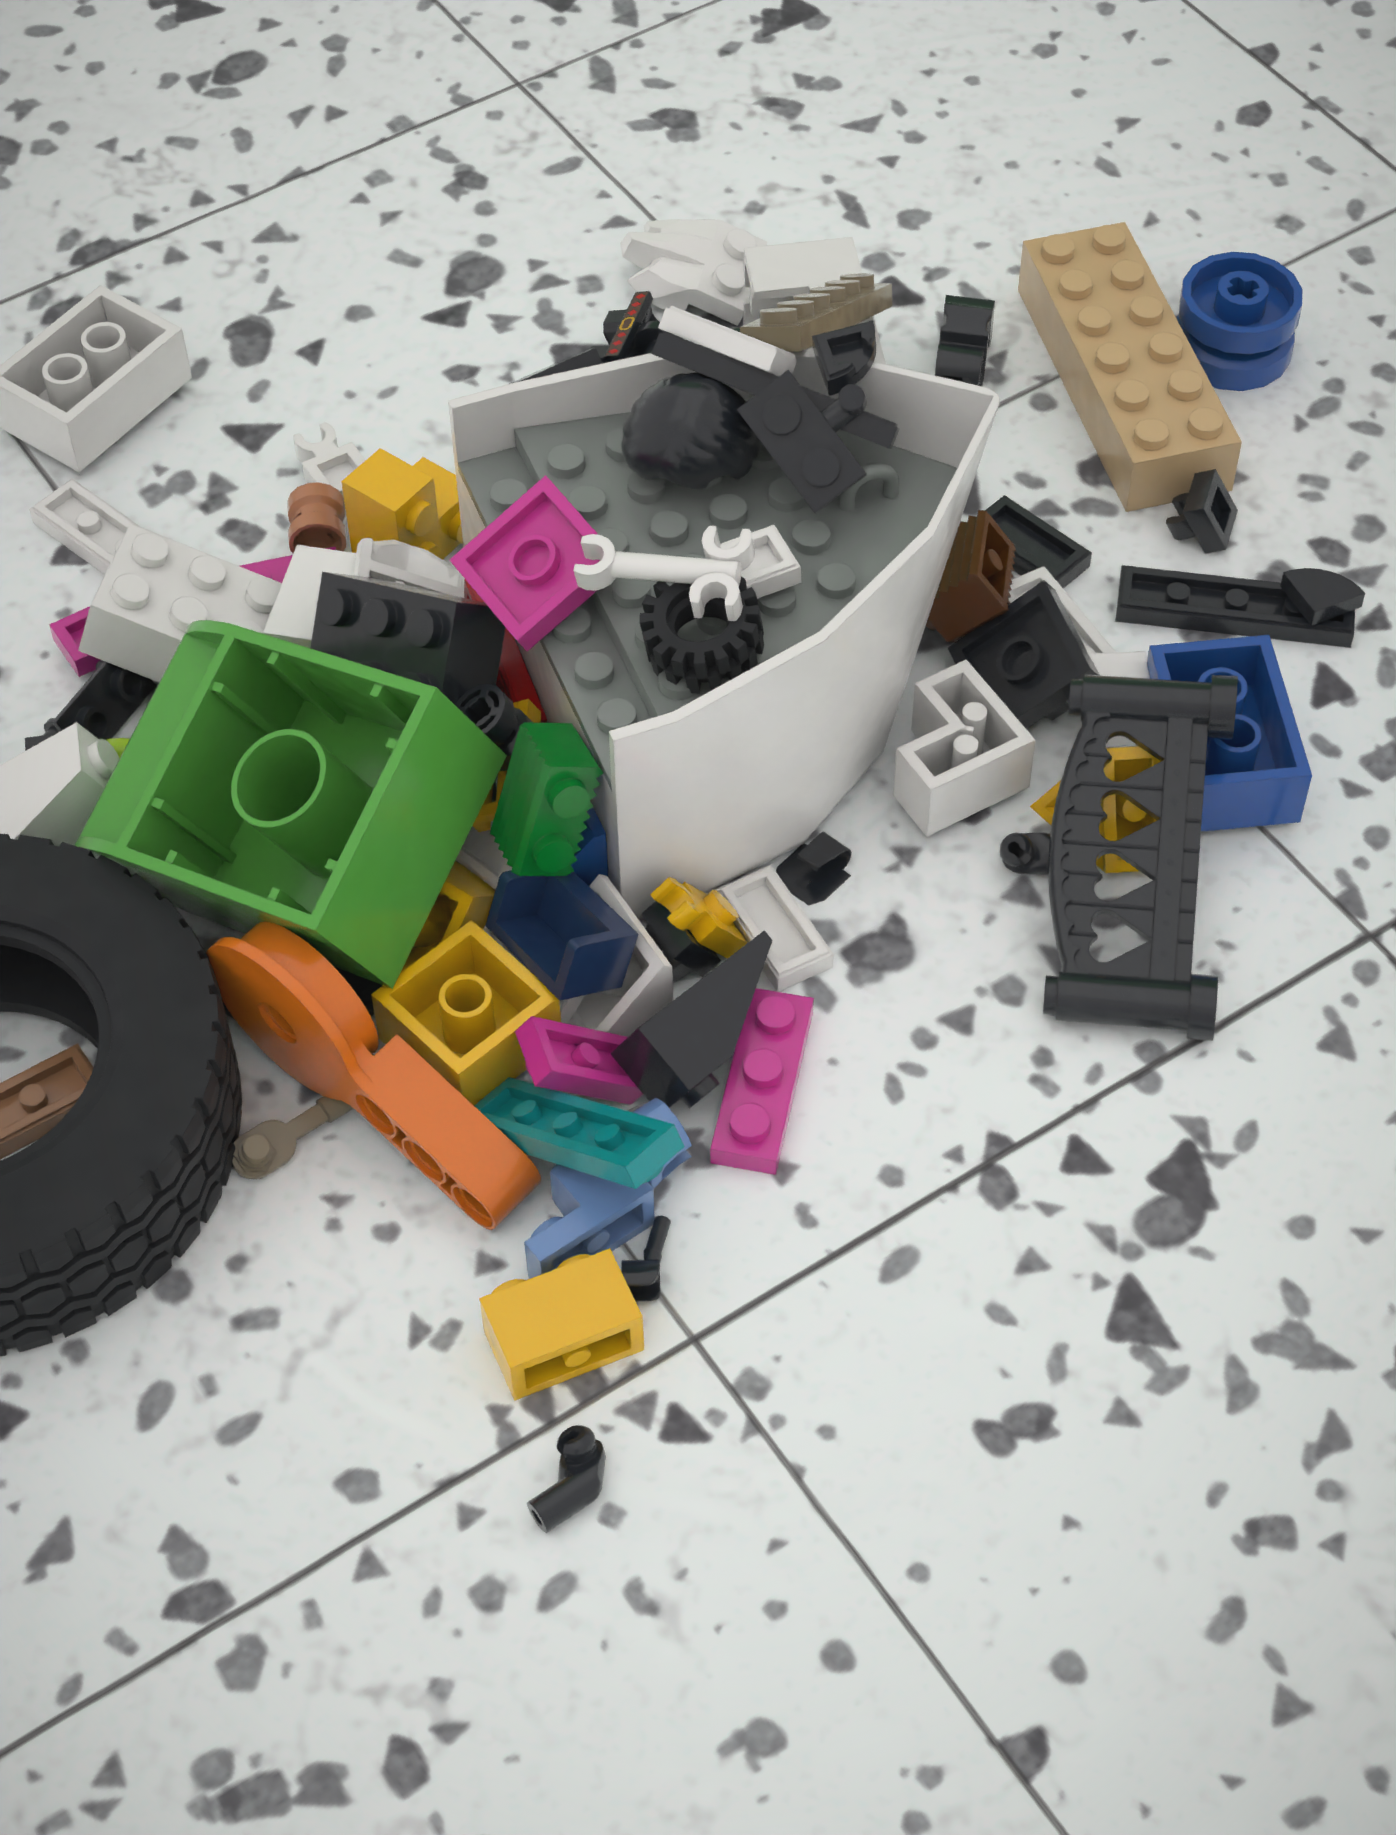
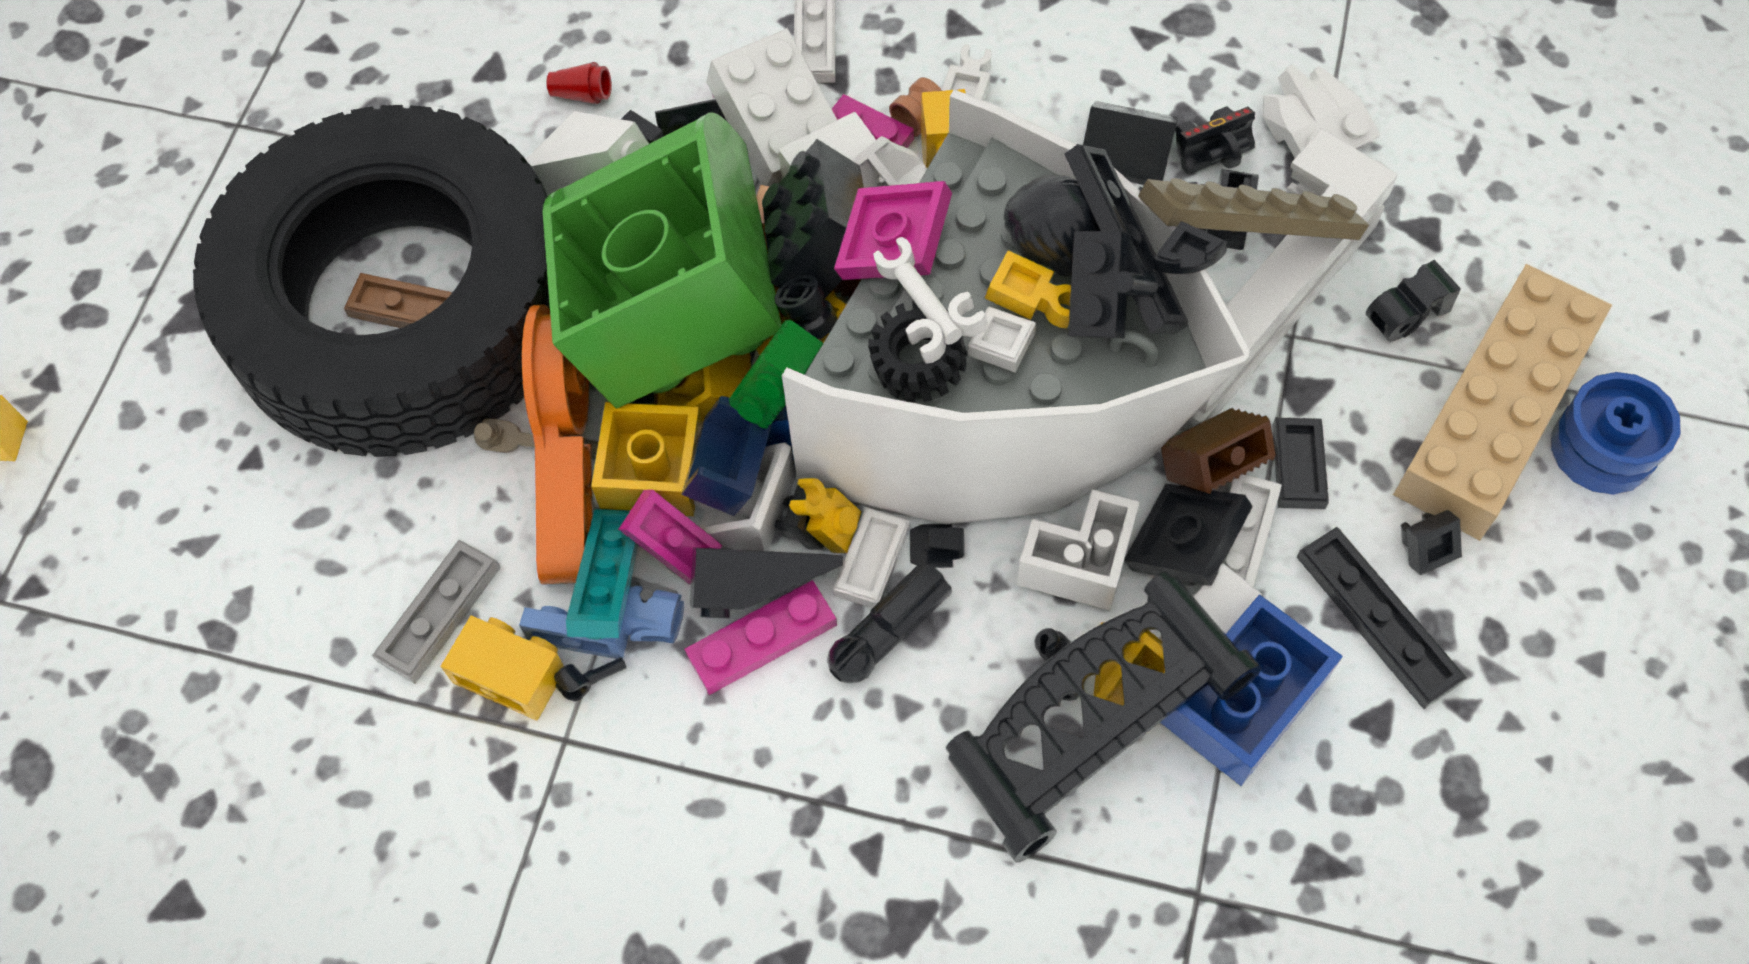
camera: 50 degrees right, 10 degrees up
(415, 1354) = (436, 611): none -> light grey tile
(578, 1478) = (423, 756): black arm -> none
(727, 341) = (1122, 184): white tile -> none
(736, 505) = (1025, 287): none -> yellow plate
(865, 960) = (888, 623): none -> black piece
(1321, 593) = (1433, 660): black tile -> none

